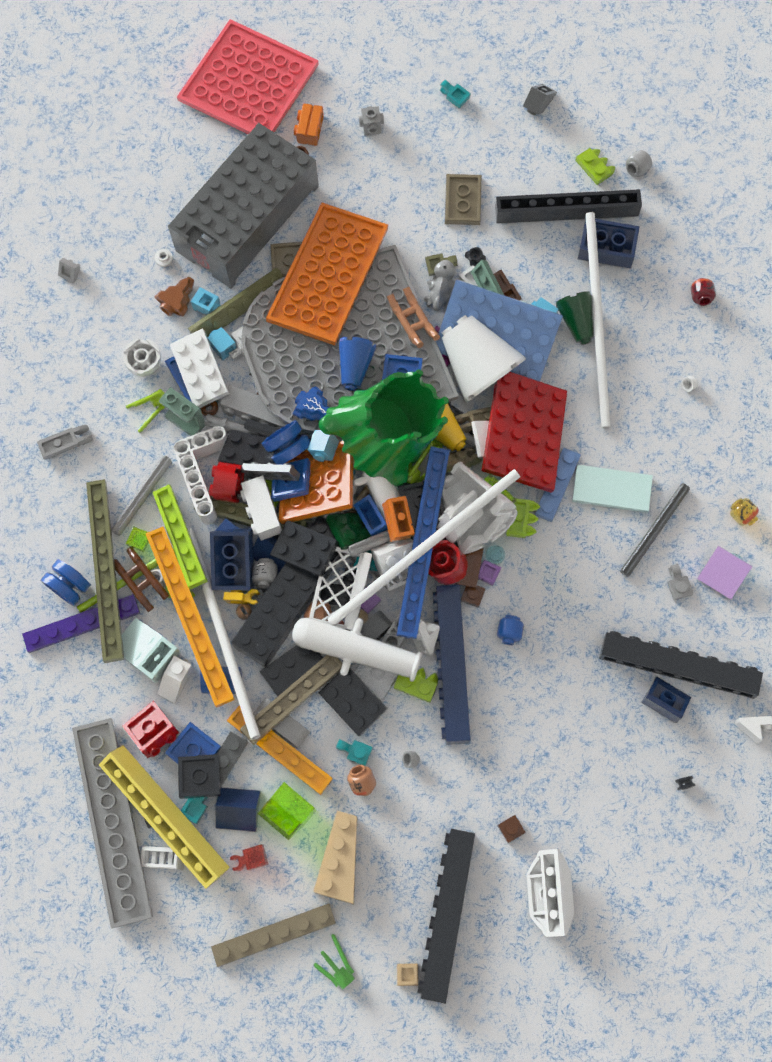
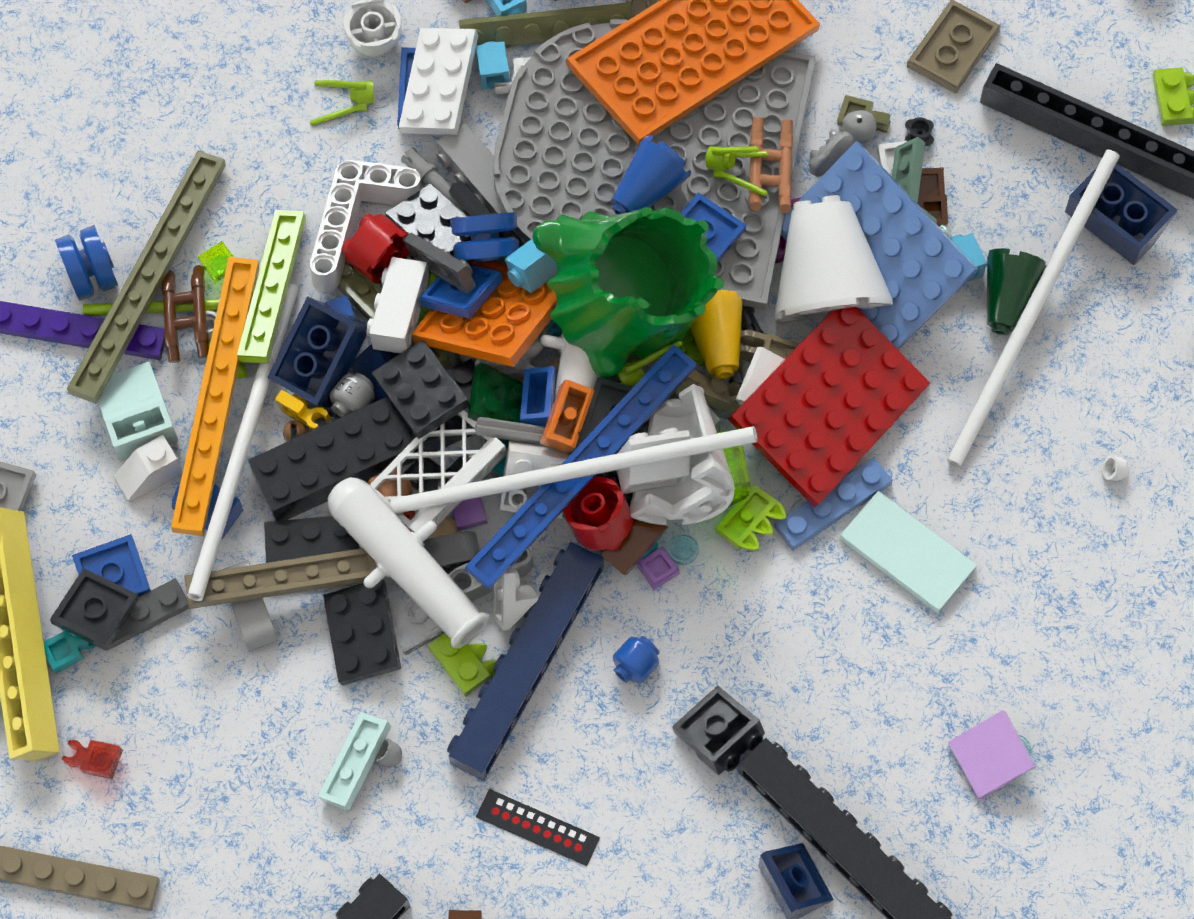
camera: 30 degrees right, 5 degrees down
(63, 441) = (204, 82): light grey hinge -> none
(141, 495) = (259, 207): light grey axle -> none
(151, 730) = (74, 516): plate -> none
(182, 412) = (378, 124): sand green panel -> none
(212, 412) = (425, 148): reddish brown plate -> none
(237, 809) = (118, 684): dark blue slope -> none
(287, 756) = (229, 658): light orange plate -> none
(287, 811) = (179, 723): clear neon green slope -> none
(310, 404) = (550, 201): blue rock -> none
(338, 865) = (207, 827): tan wedge -> none
(357, 751) = (324, 703): teal plate -> none
(361, 780) = (303, 741): nougat head -> none
(385, 329) = (724, 158): none -> lime plant
(395, 774) = (354, 761): none -> light aqua plate
(473, 596) = (617, 586): reddish brown plate -> none
(514, 751) = (538, 827): none -> black sticker
(578, 642) = (719, 730): none -> black plate
(654, 530) = (931, 642): dark grey axle -> none
(679, 586) = (916, 738): light grey plate -> none
(744, 512) = (1077, 688): clear yellow head -> none

